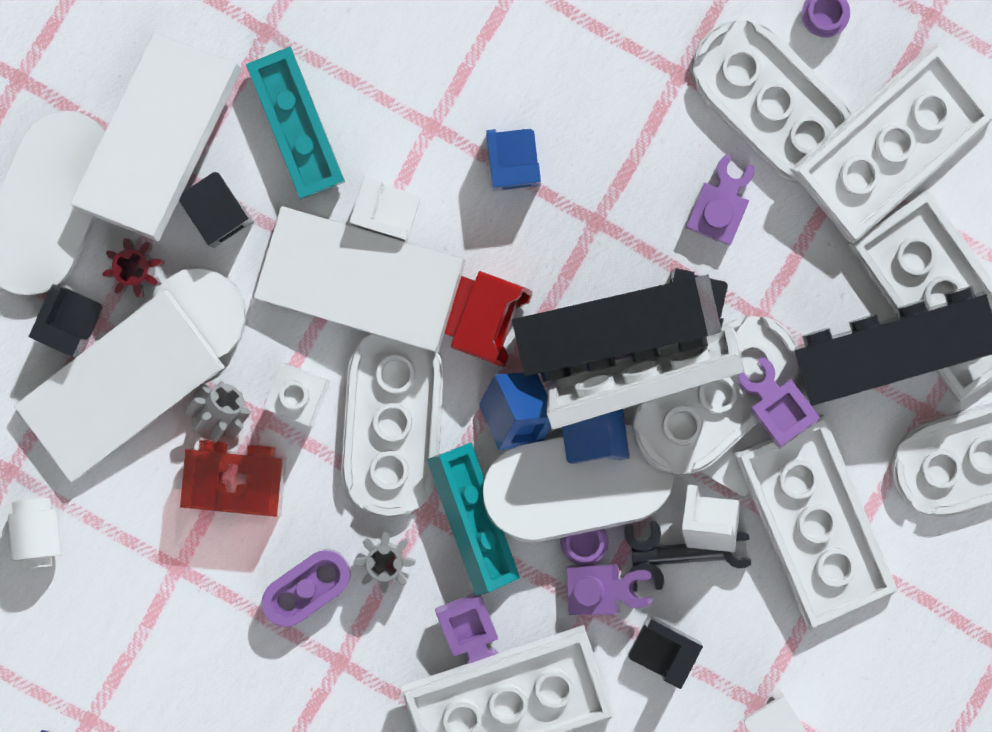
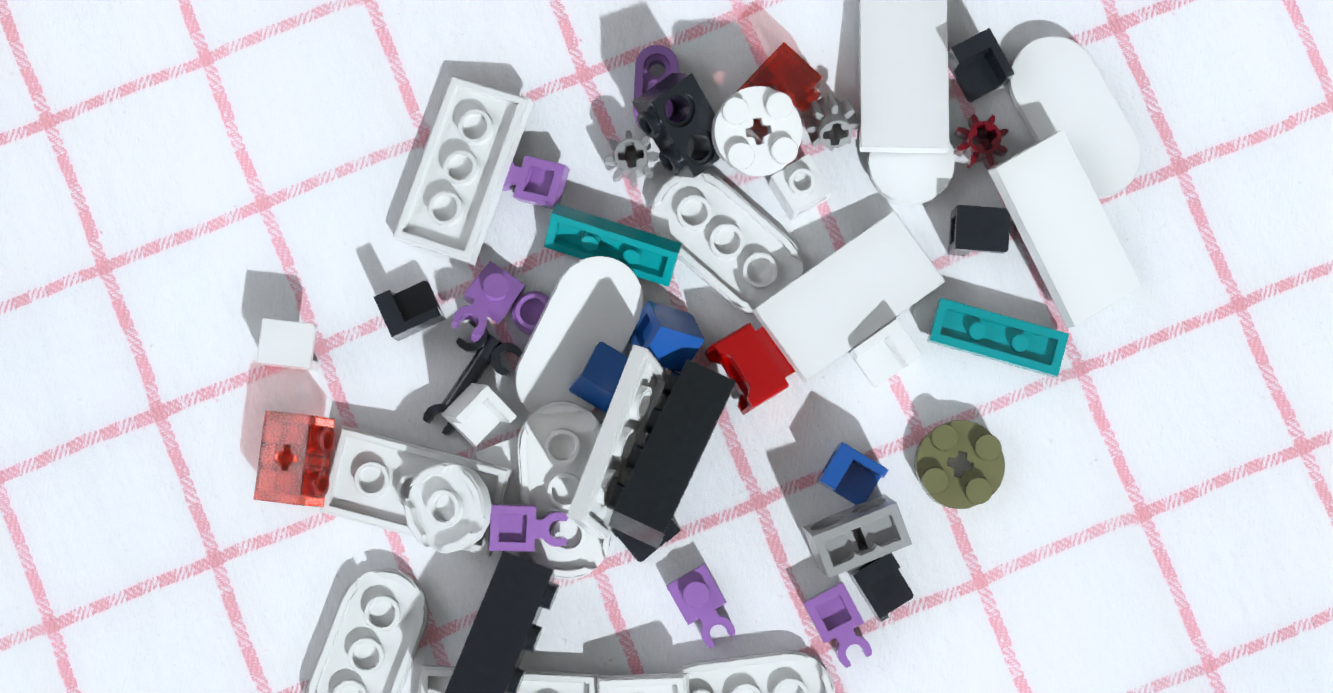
camera: 130 degrees right, 5 degrees down
(278, 440) = (774, 111): none -> white plate
(314, 537) = (690, 118): none -> black brick
(440, 46) = (938, 478): none -> olive plate
(562, 114) = (857, 535): none -> light grey brick
(586, 61) = (882, 585): none -> black panel
(645, 79) = (835, 617): none -> medium lavender plate
(811, 482) = (448, 507): none -> white tile
(871, 647) = (294, 459): none -> clear red brick

